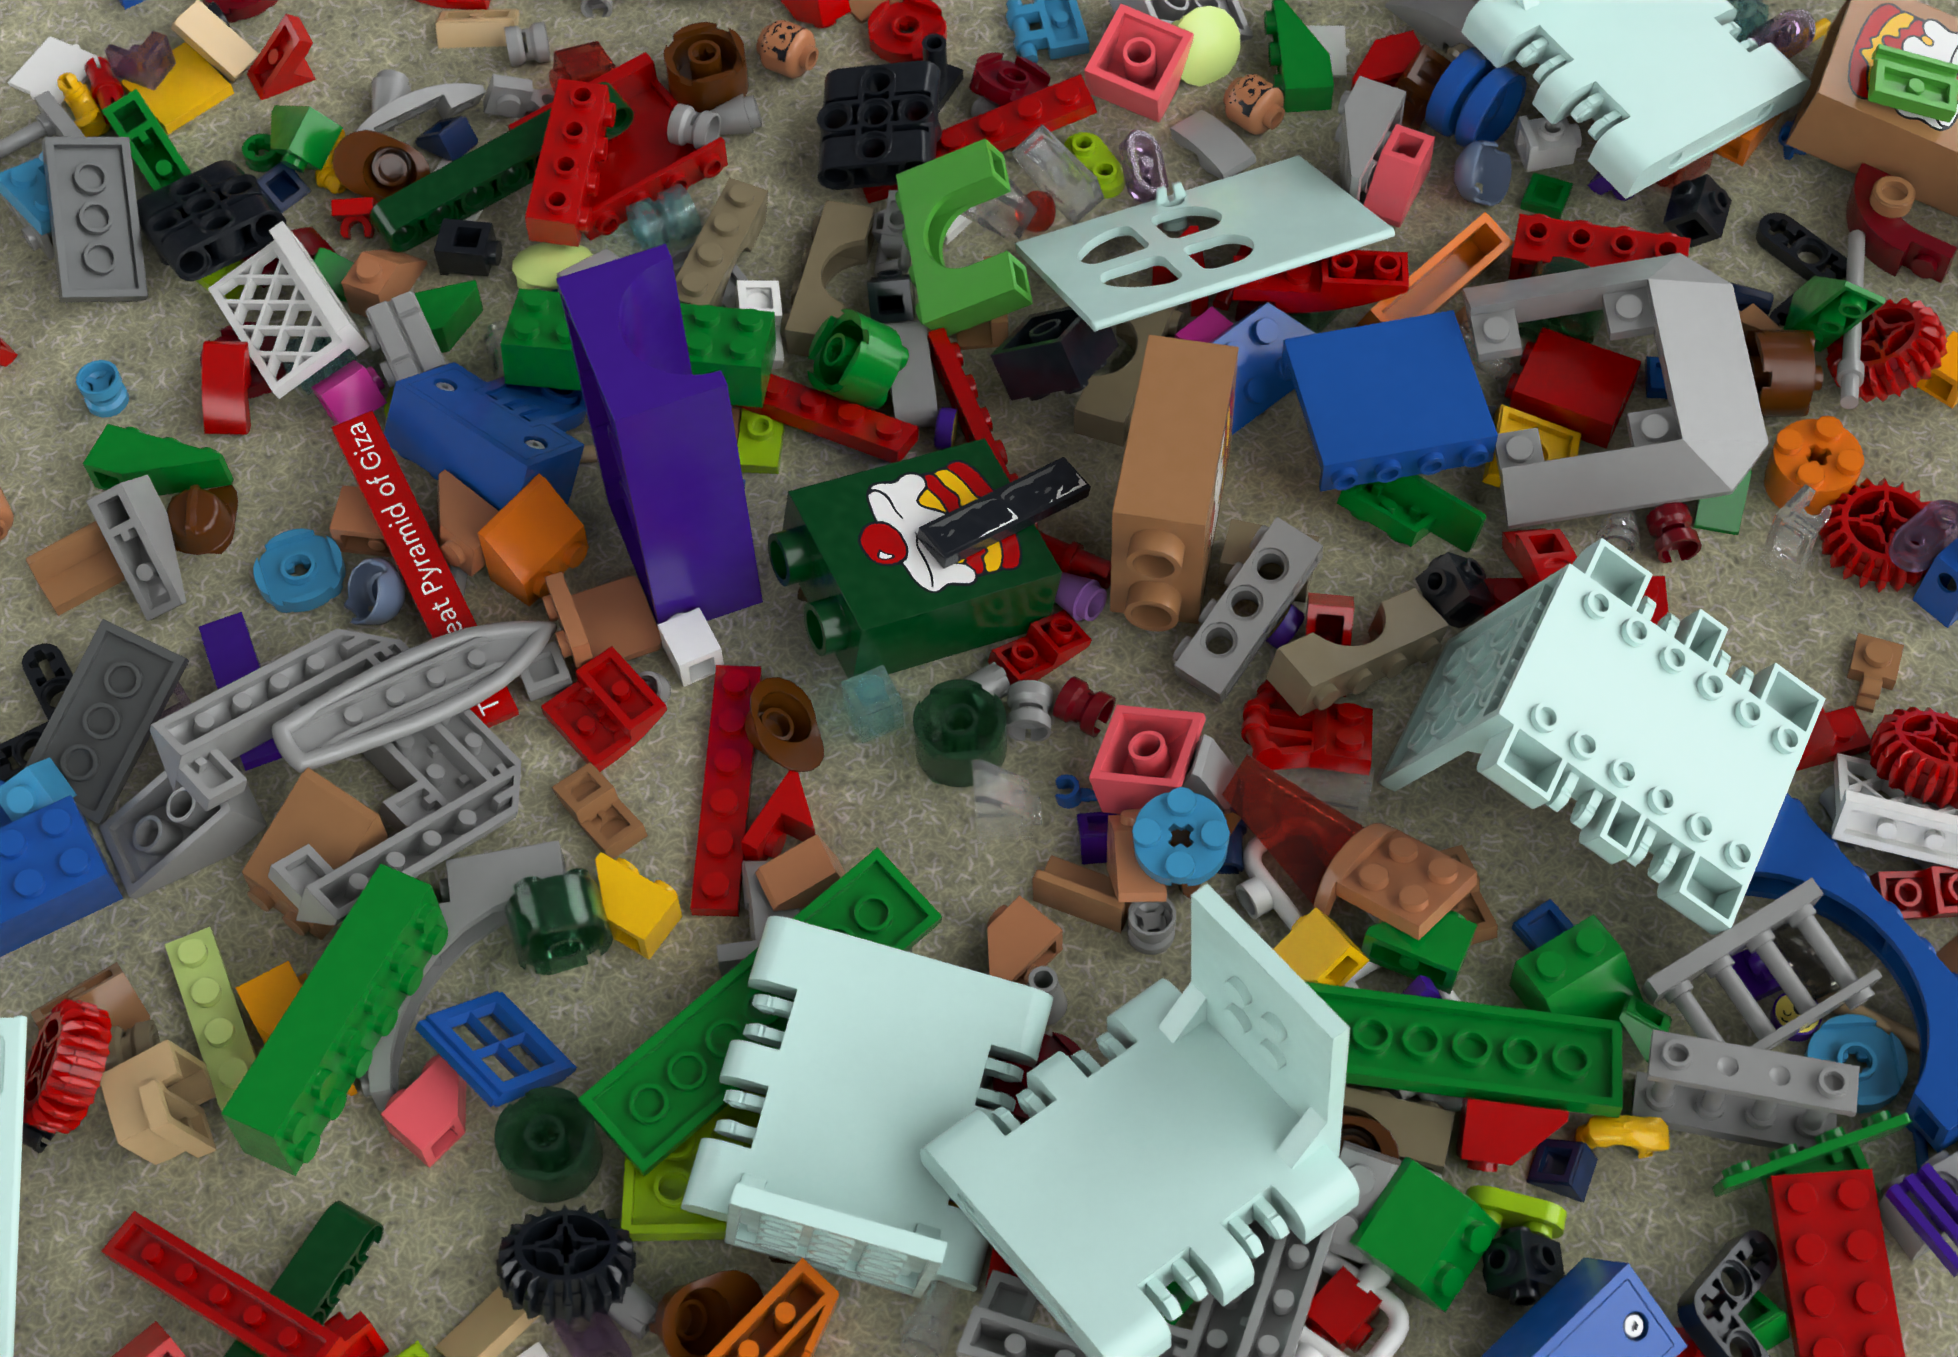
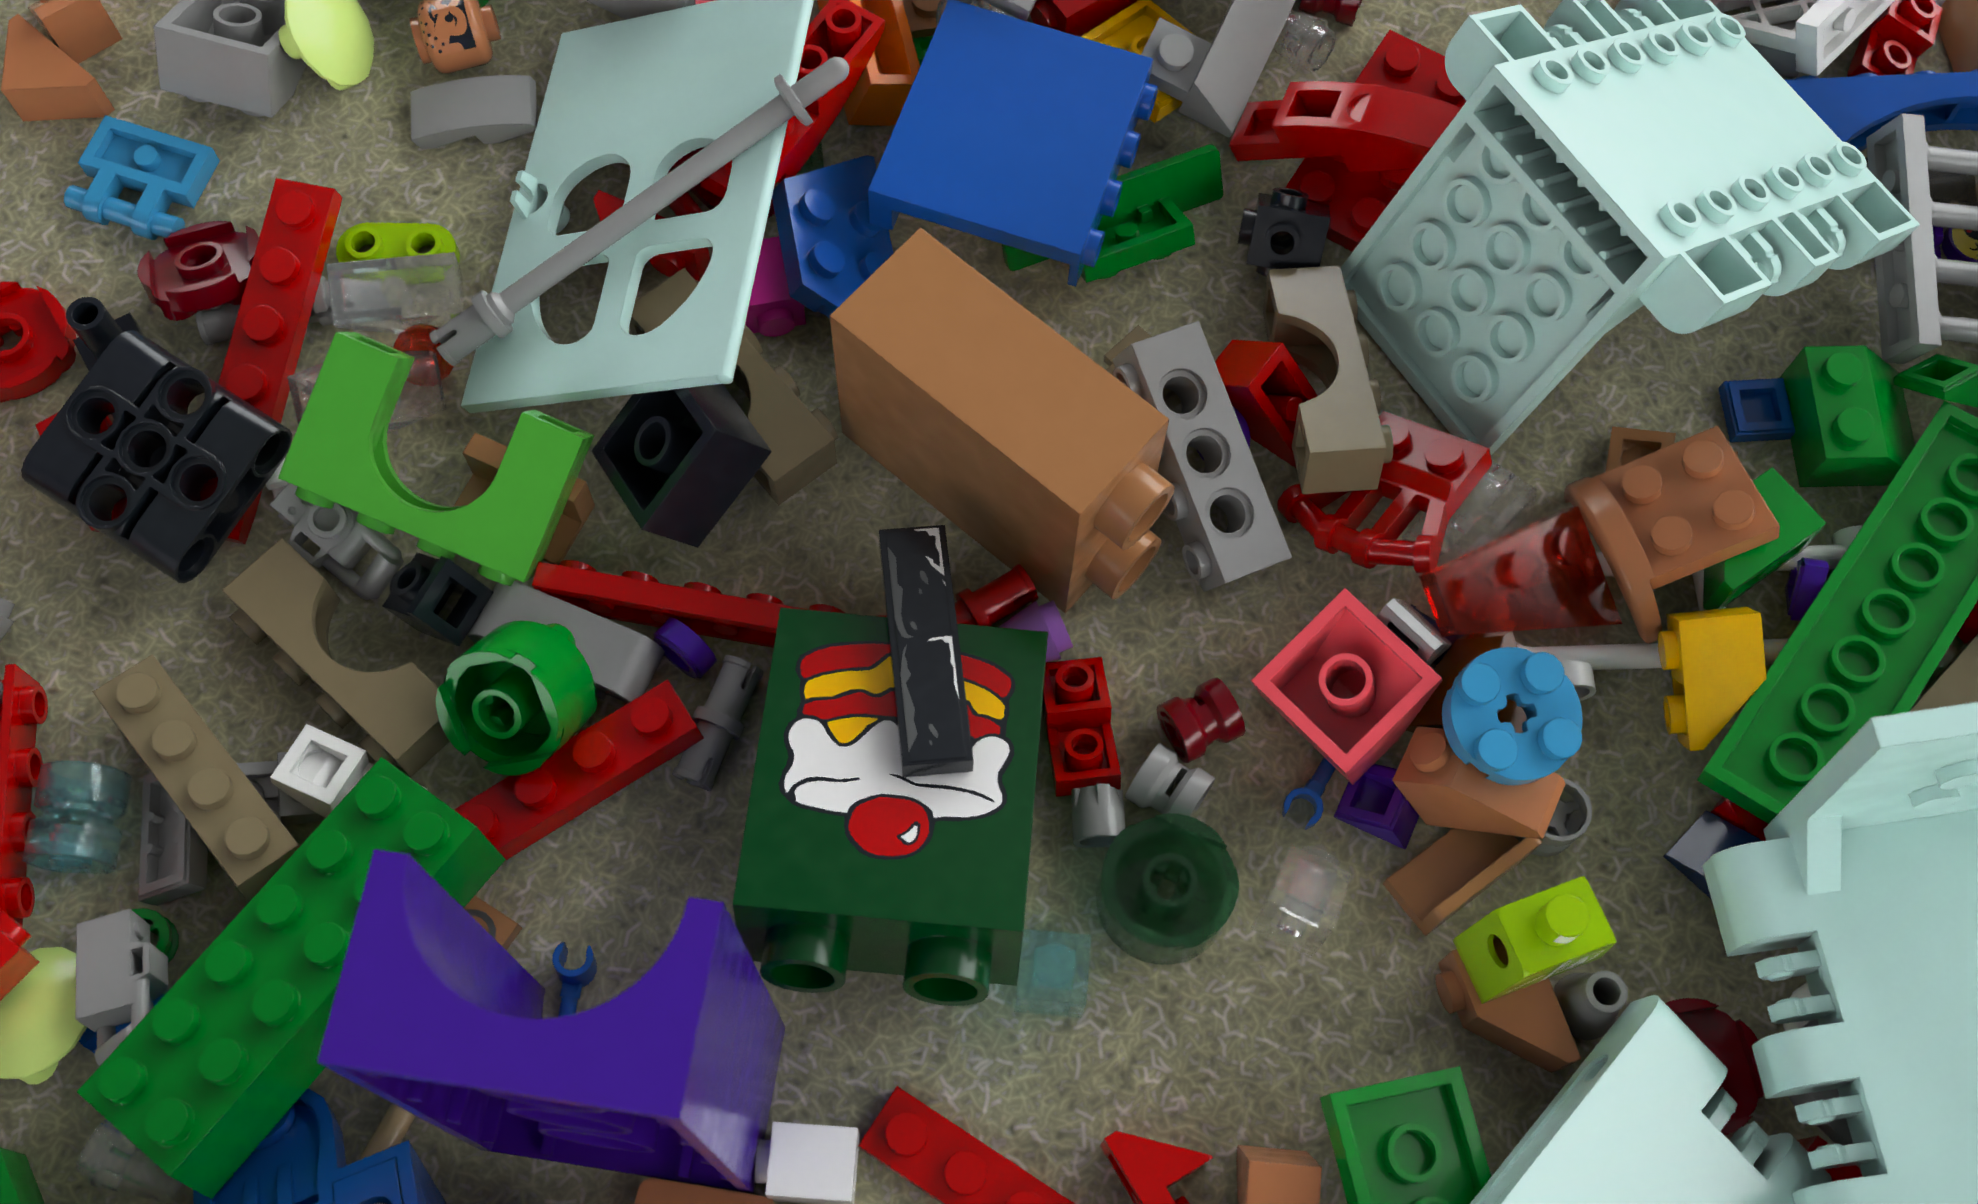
camera: 65 degrees left, 10 degrees up
(760, 443) = (537, 895): lime plate -> none
(784, 725) = (1029, 1109): reddish brown piece -> none
(1043, 914) = (1541, 937): none -> lime torso
(1075, 219) = (495, 312): none -> light grey bar
(1138, 63) = (301, 107): coral slope -> none
(1142, 165) = (450, 201): plate -> none

